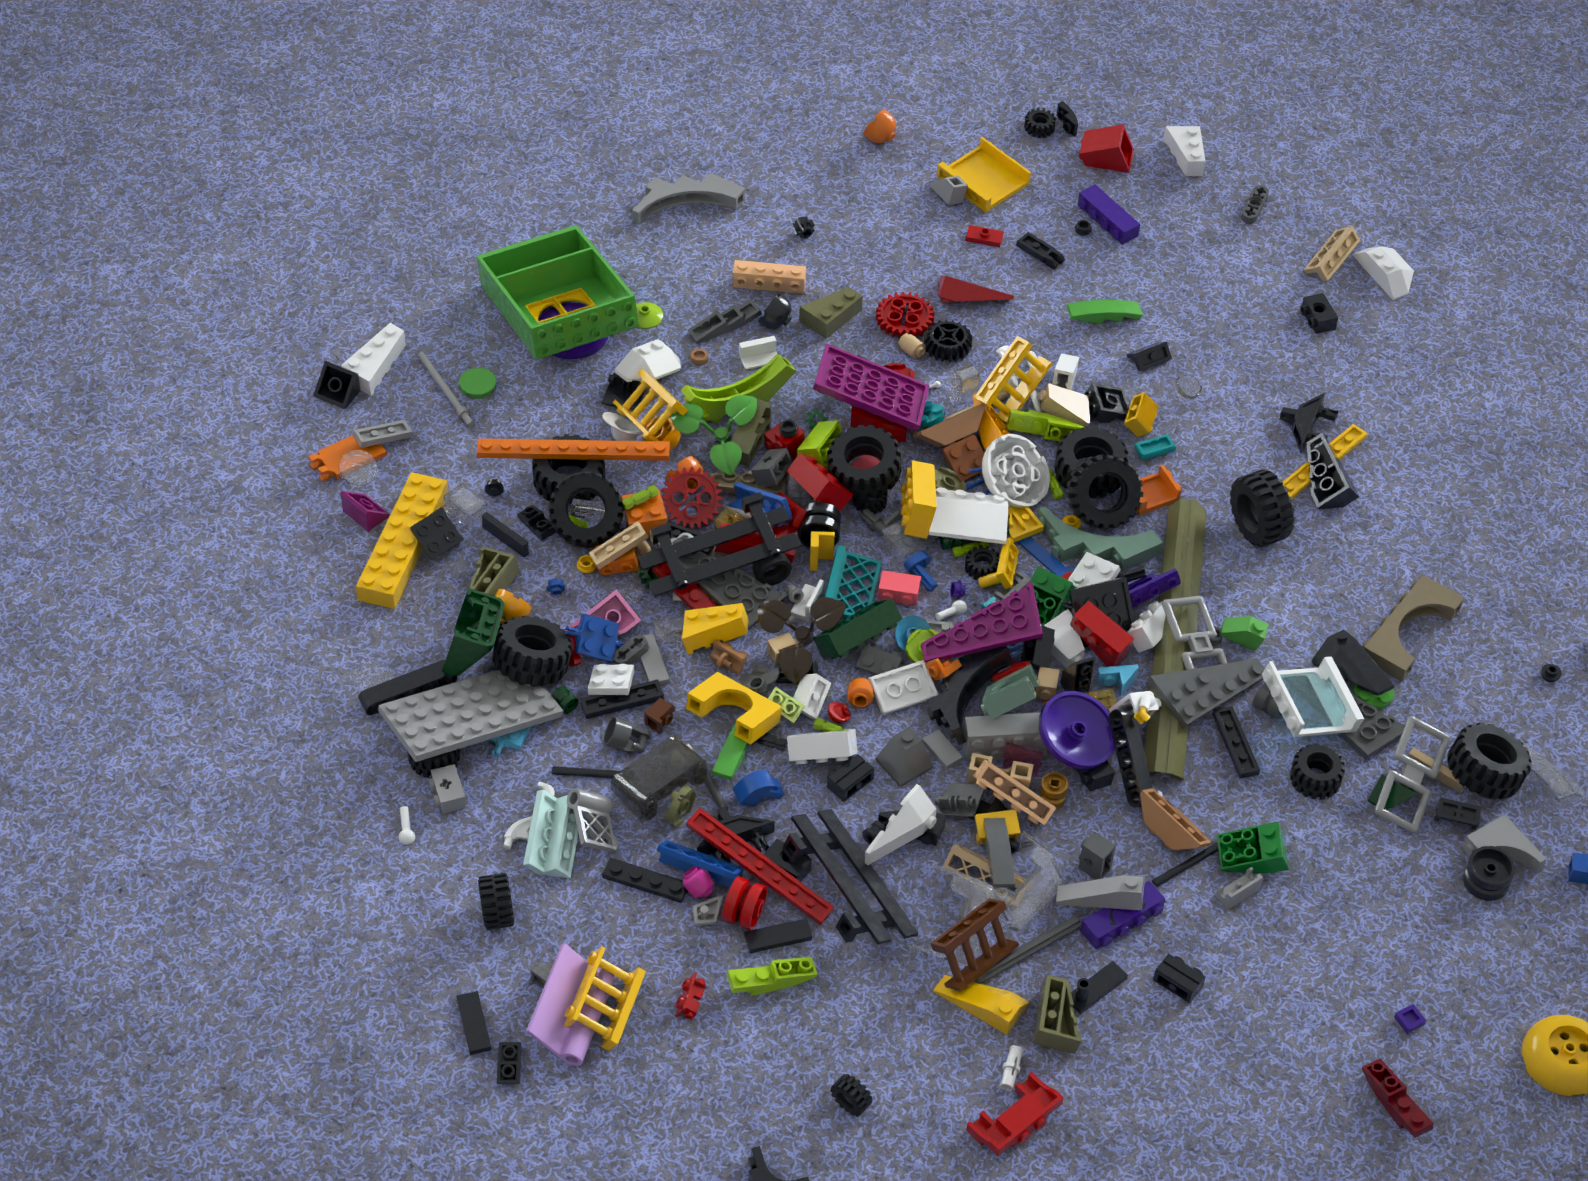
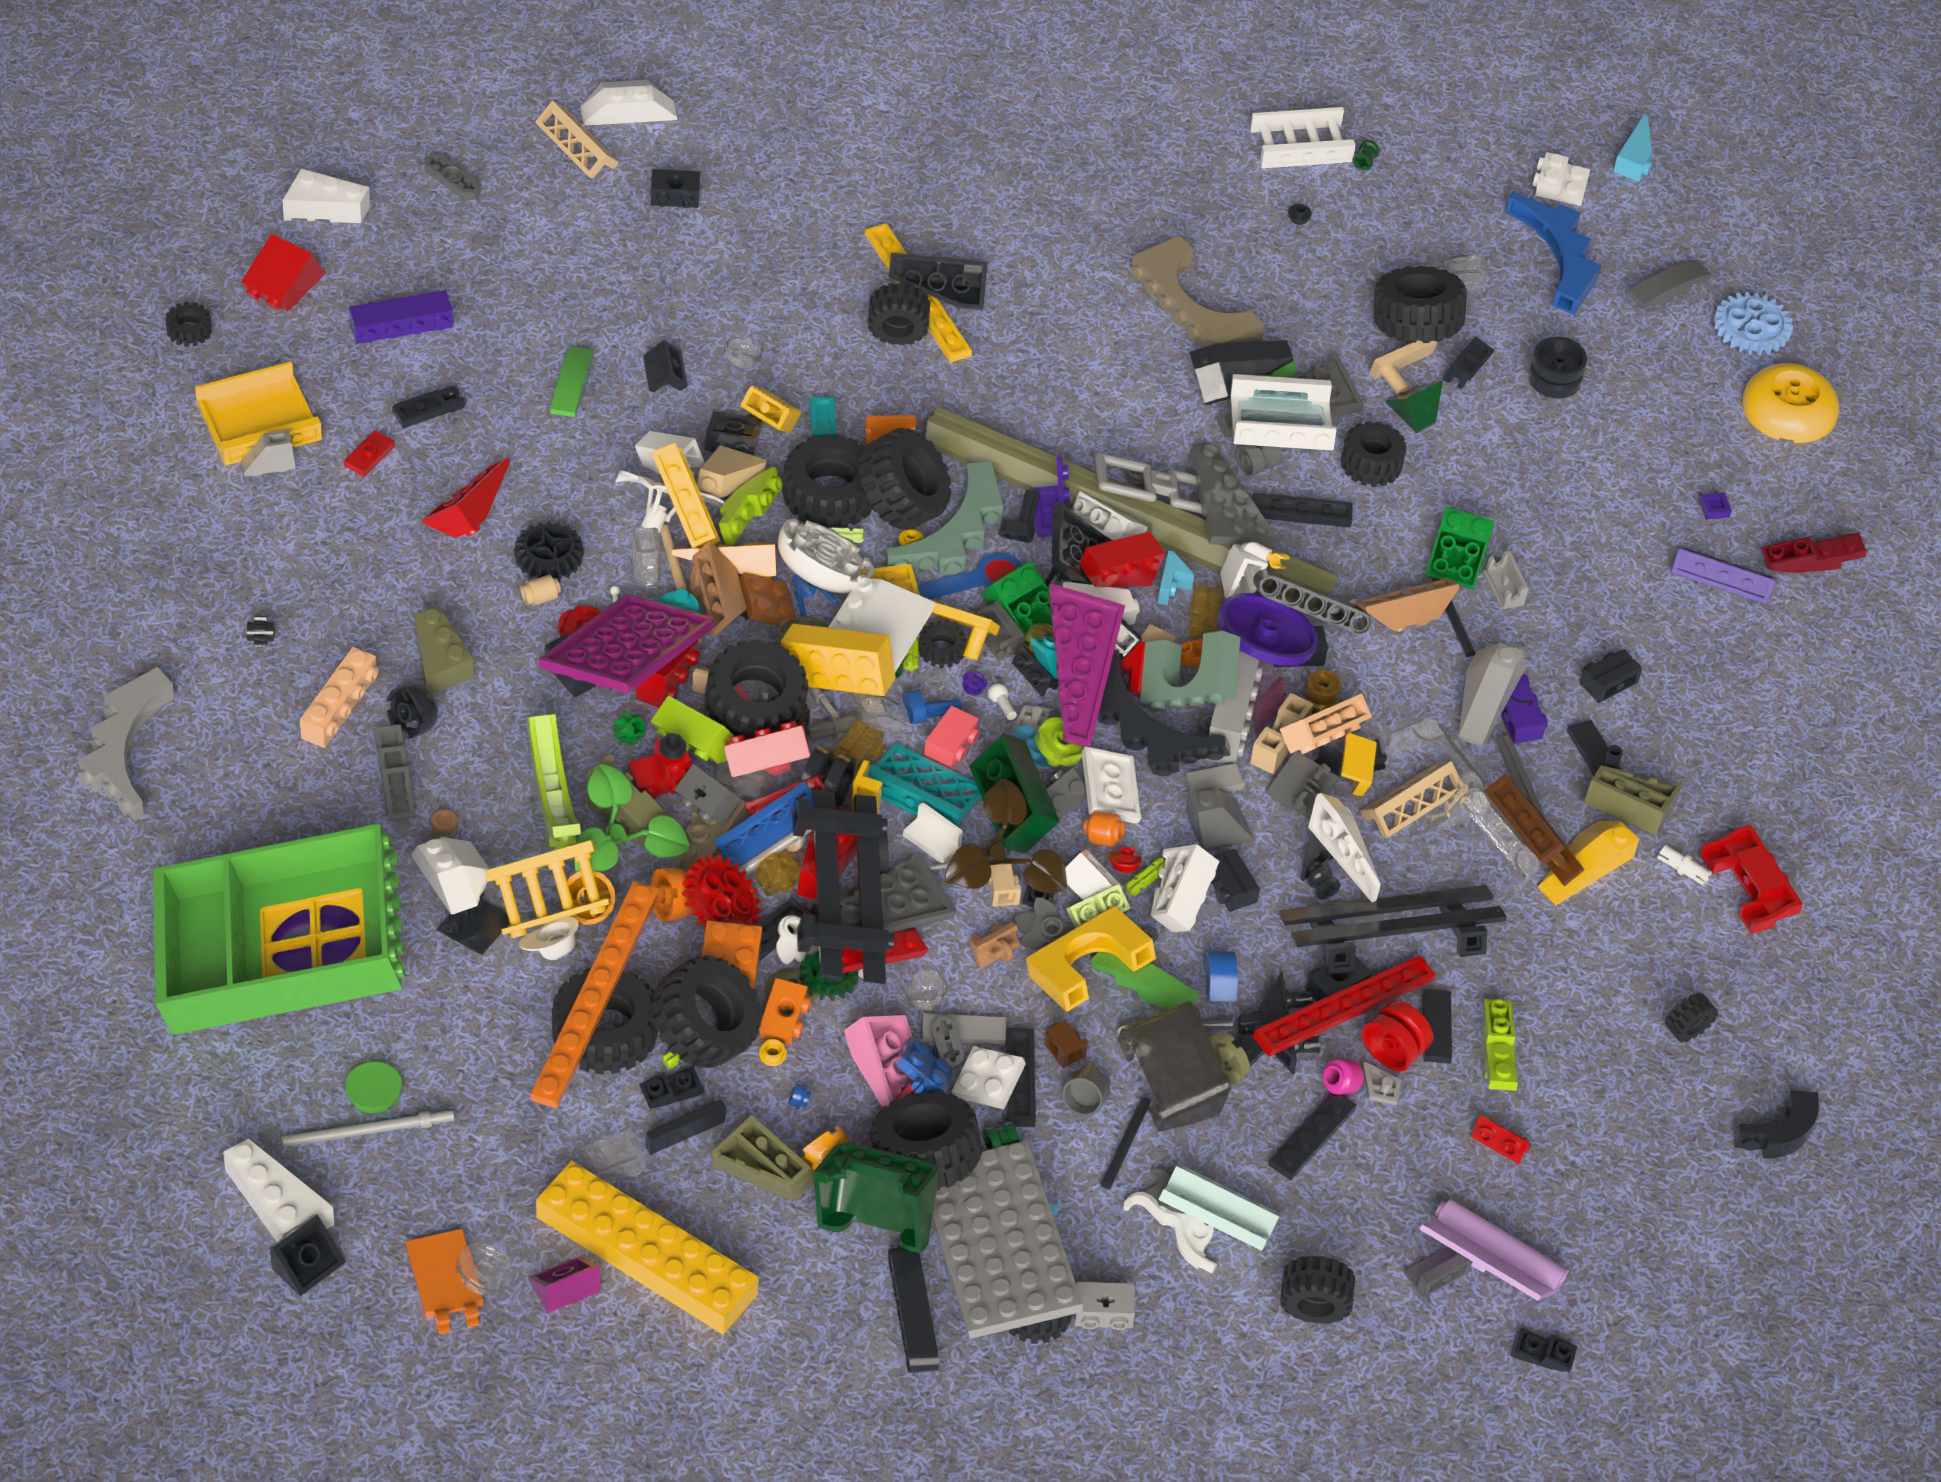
camera: 75 degrees left, 0 degrees up
(382, 433) = (433, 1221): light grey plate -> none
(406, 836) = (1156, 1375): white bar -> none
(436, 533) = (667, 1194): black bracket -> none
(473, 1023) = (1473, 1373): black tile -> none
(494, 487) = (592, 1117): black plate -> none
(593, 807) = (1195, 1154): light grey piece -> none
(620, 544) = (785, 993): tan piece -> none
(624, 998) = (1493, 1217): yellow fence -> none
(640, 497) = (723, 938): lime axle -> none
(686, 858) = (1309, 1071): blue fence -> none
(713, 623) = (949, 939): yellow wedge -> none
(757, 352) = (474, 755): white panel -> none
(791, 593) = (923, 843): light grey pin -> none
(860, 540) = (862, 744): none -> clear yellow brick
(881, 128) = (112, 482): orange cylinder -> none
(892, 311) = (480, 580): red gear -> none
(942, 669) = (1107, 732): orange bracket -> none
(999, 853) = (1419, 765): dark grey slope -> none
(1068, 117) = (207, 292): black slope -> none
(1078, 676) = (1169, 607): black slope -> none
(1083, 227) = (408, 351): black plate -> none
(1093, 570) = (1014, 543): white plate -> none
(1096, 856) = (1434, 684): dark grey brick -> none
(1245, 631) = (1151, 438): bright green slope -> none
(1262, 508) = (989, 326): black tyre -> none
(1270, 452) = (899, 314): none -> black tyre
(1305, 417) = (845, 269): black connector -> none
(1336, 1039) = (1723, 575): none -> fence
(1412, 774) = (1414, 373): light grey bar -> none
(1505, 835) = (1514, 340): light grey arch -> none

